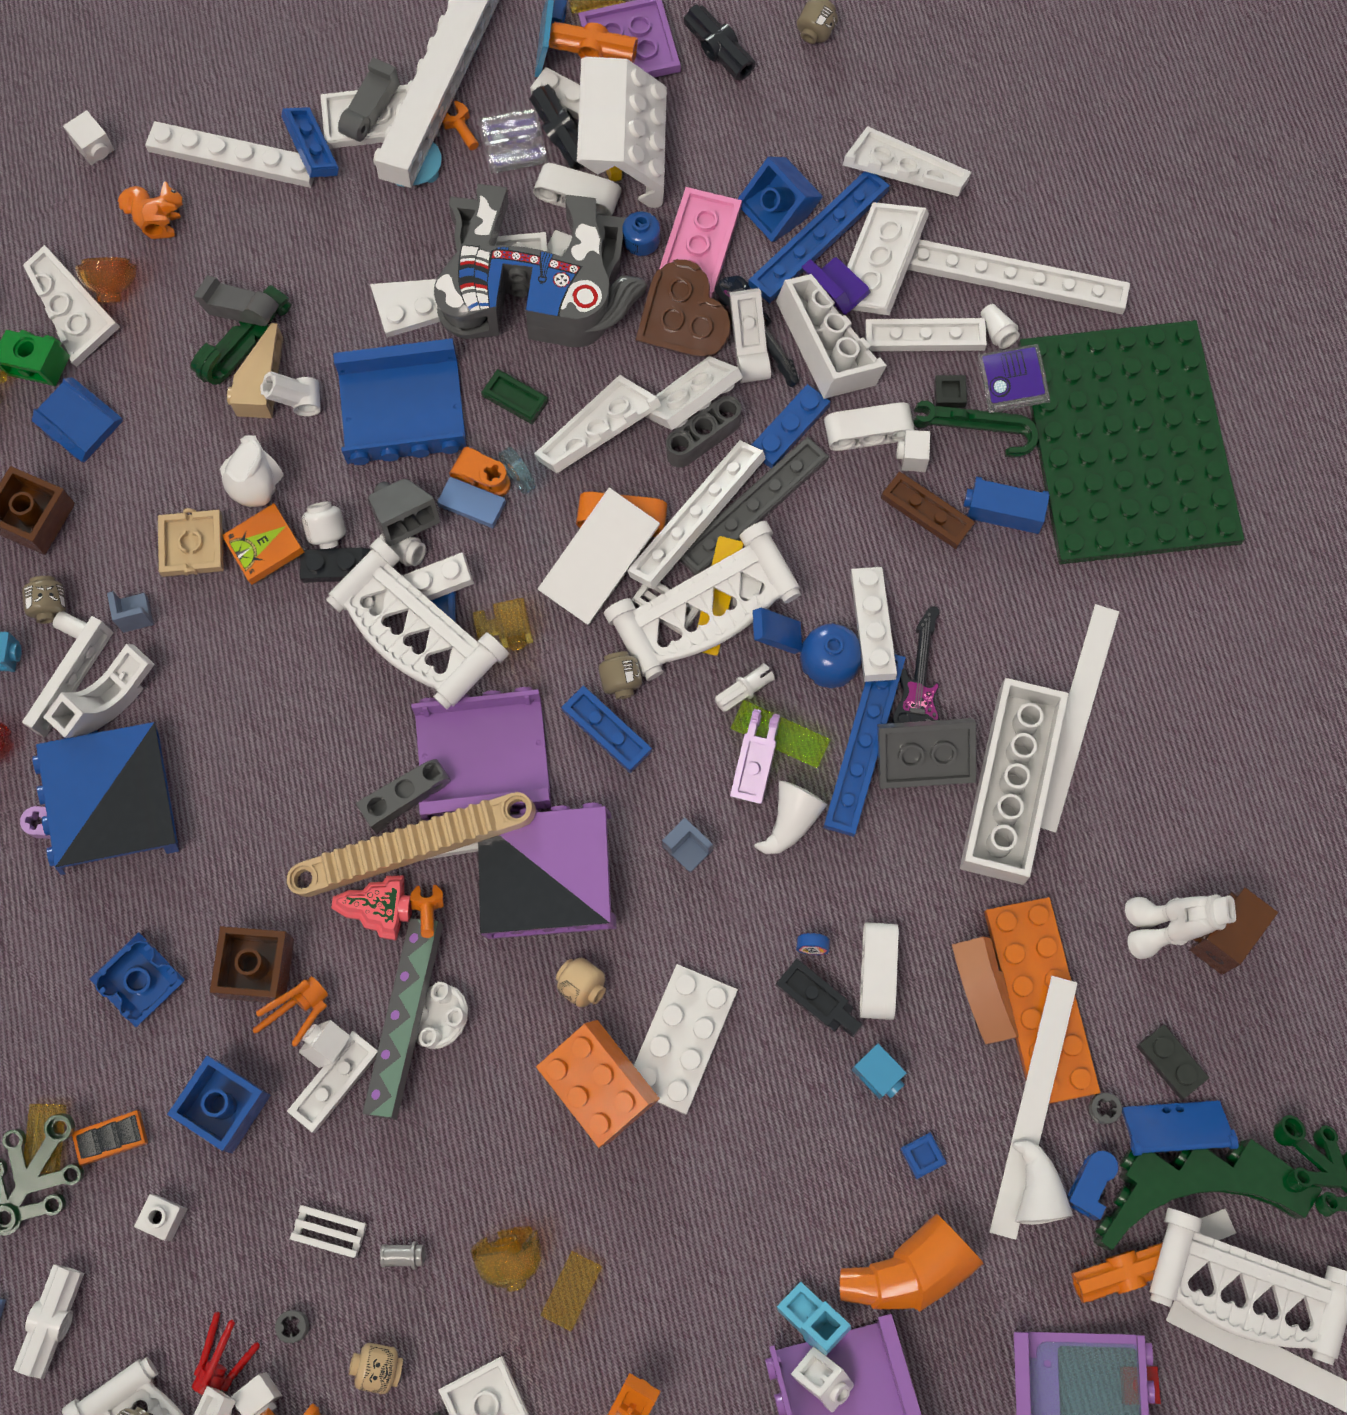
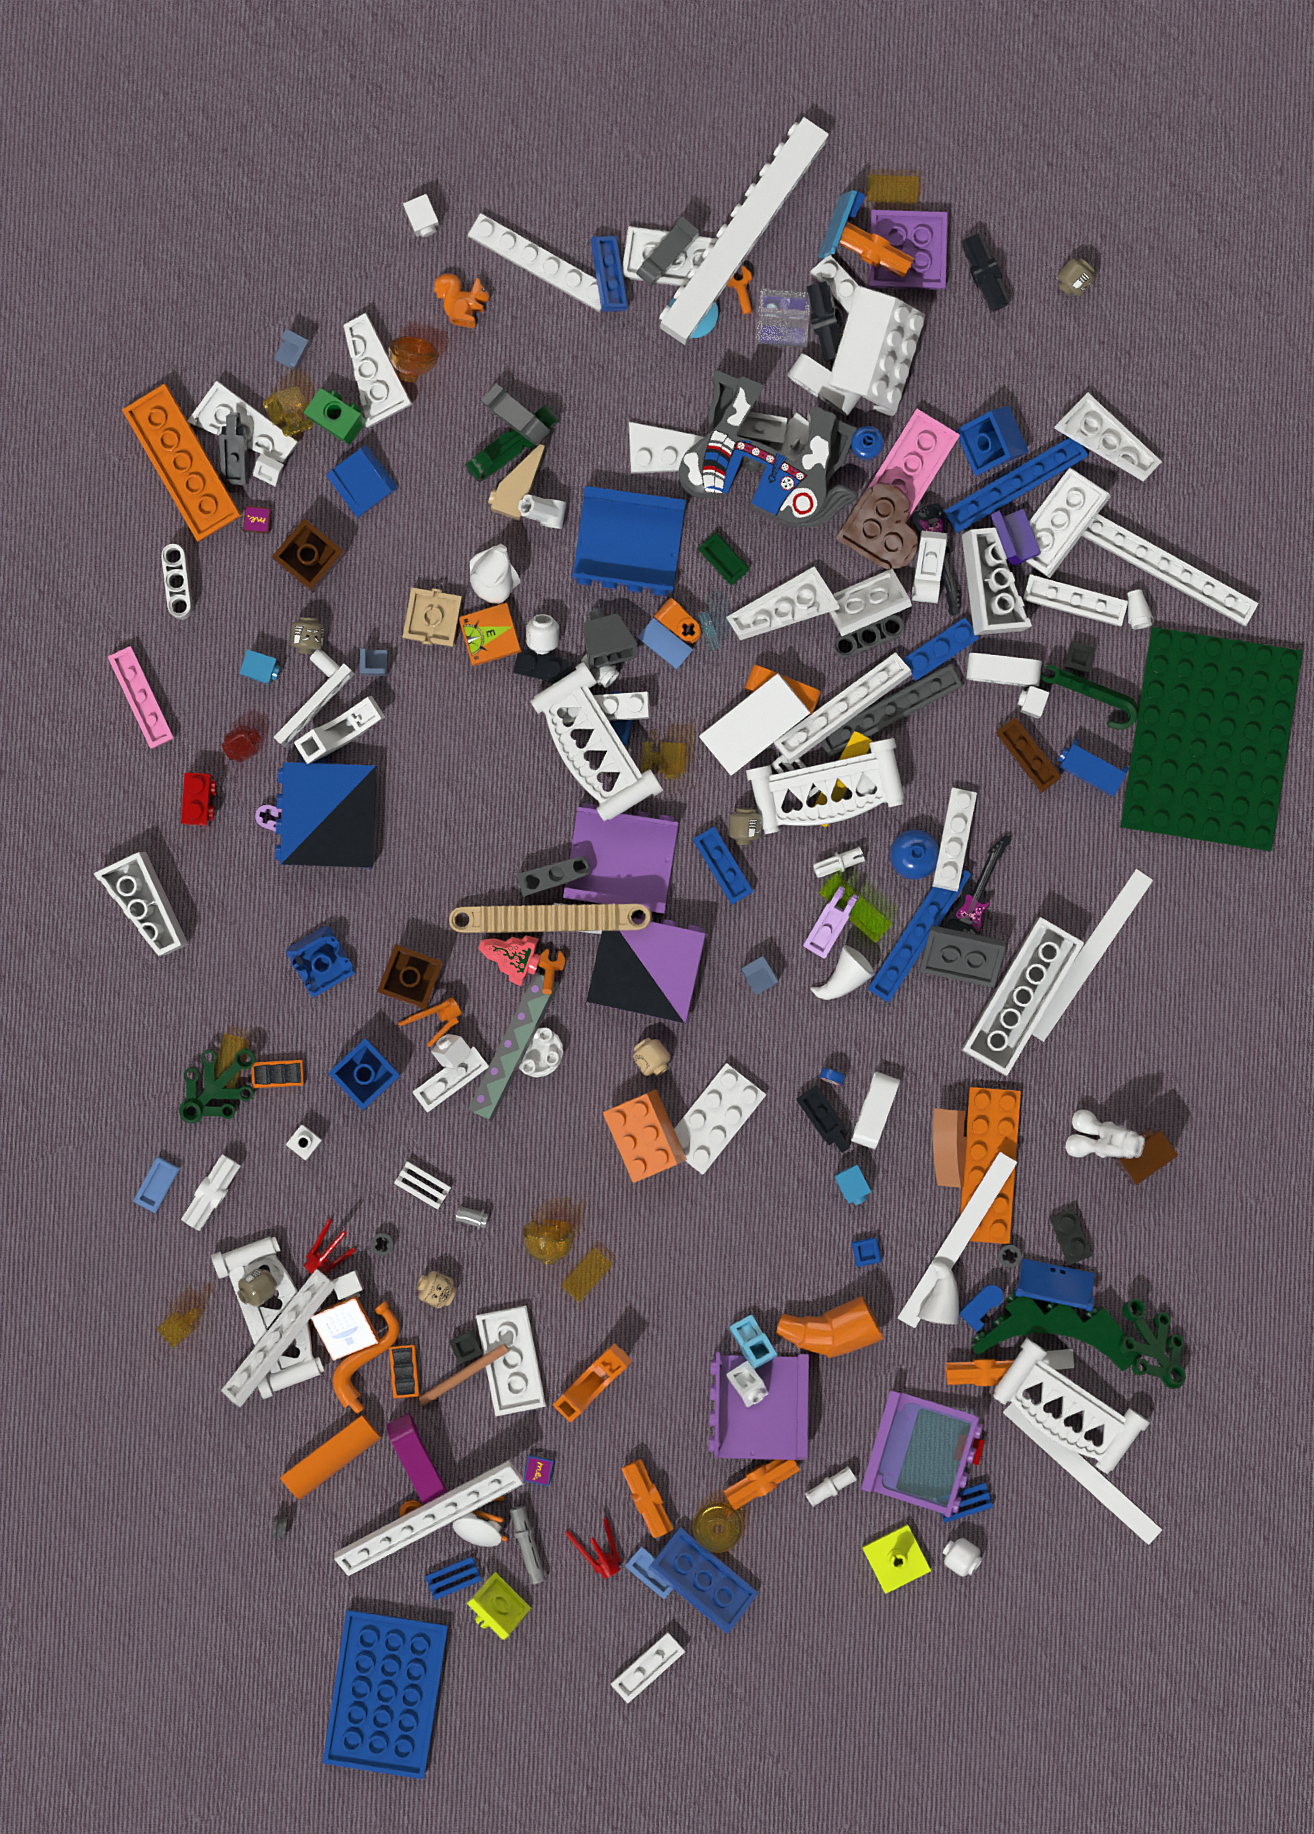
camera: 10 degrees right, 15 degrees up
(777, 630) = (877, 826): blue tile -> none
(1013, 378) = (1132, 664): slope -> none

